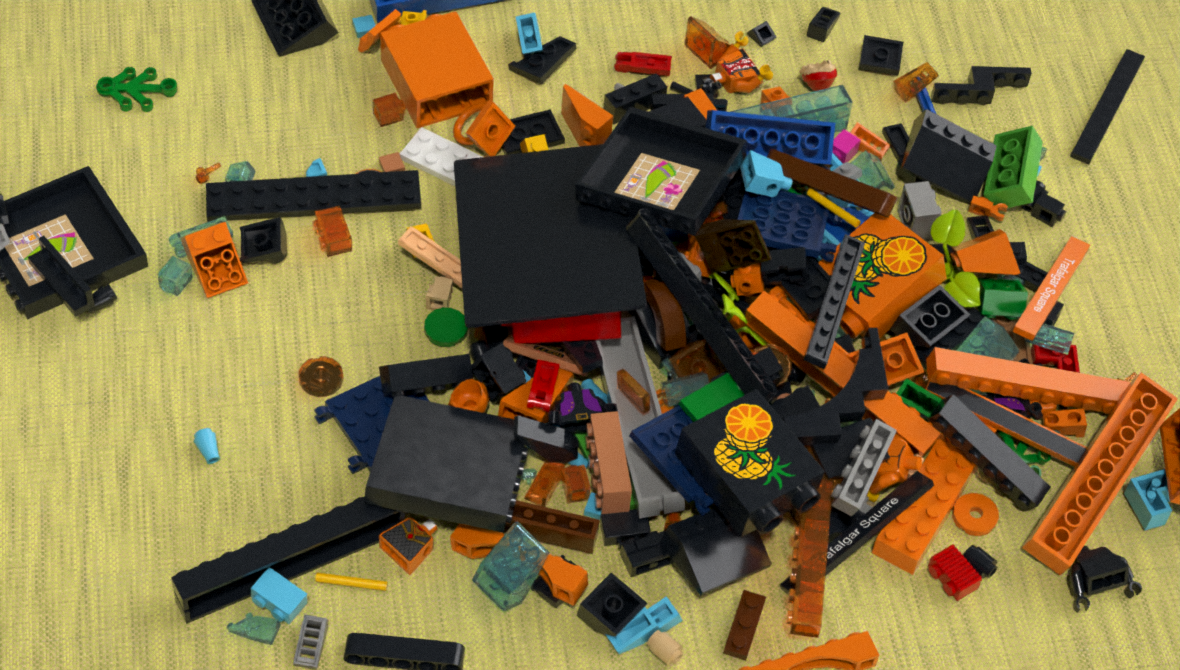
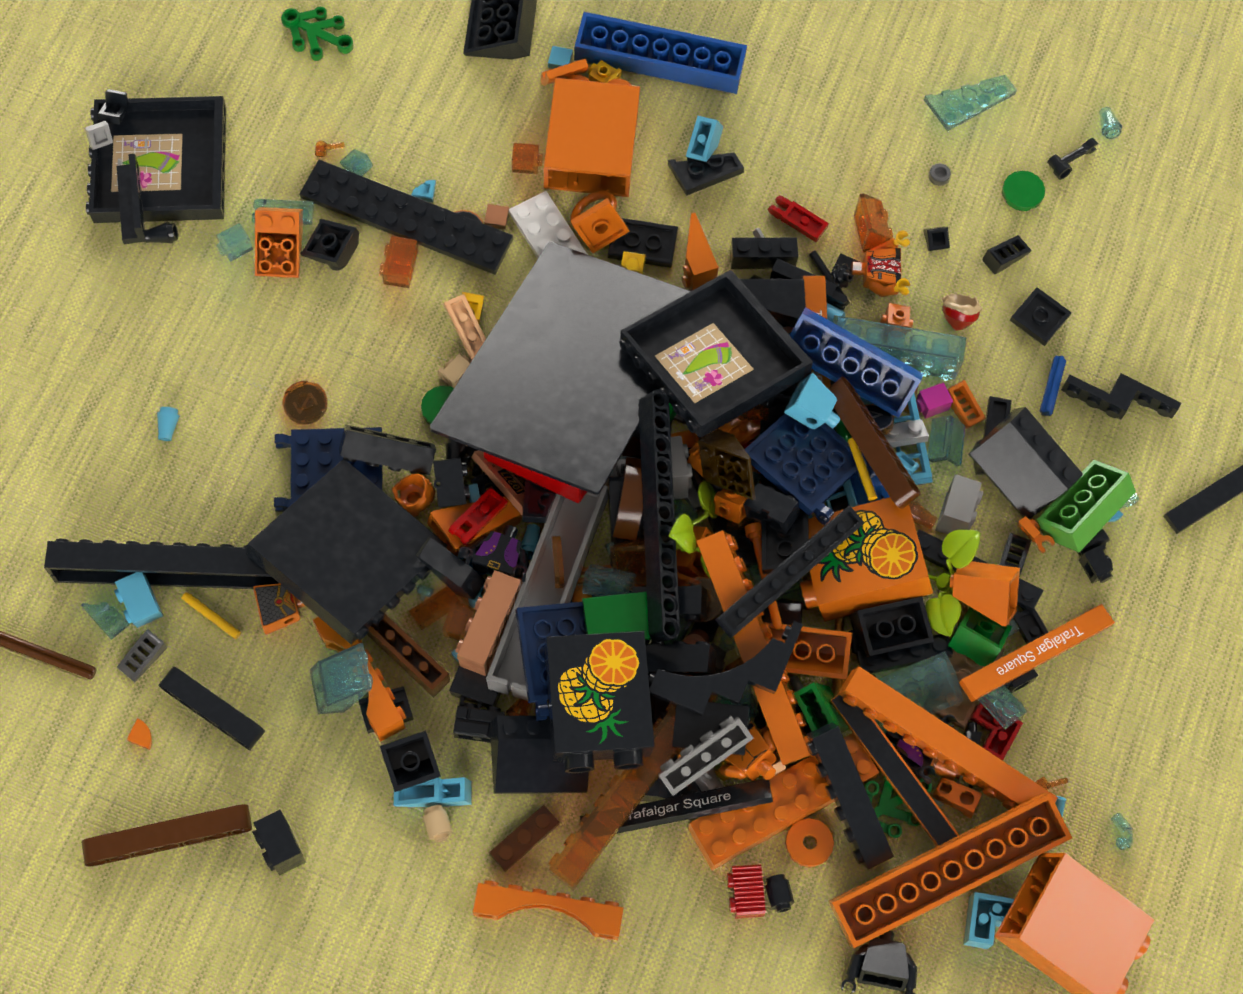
camera: 30 degrees right, 15 degrees up
(905, 80) = (1045, 356): clear orange slope -> none

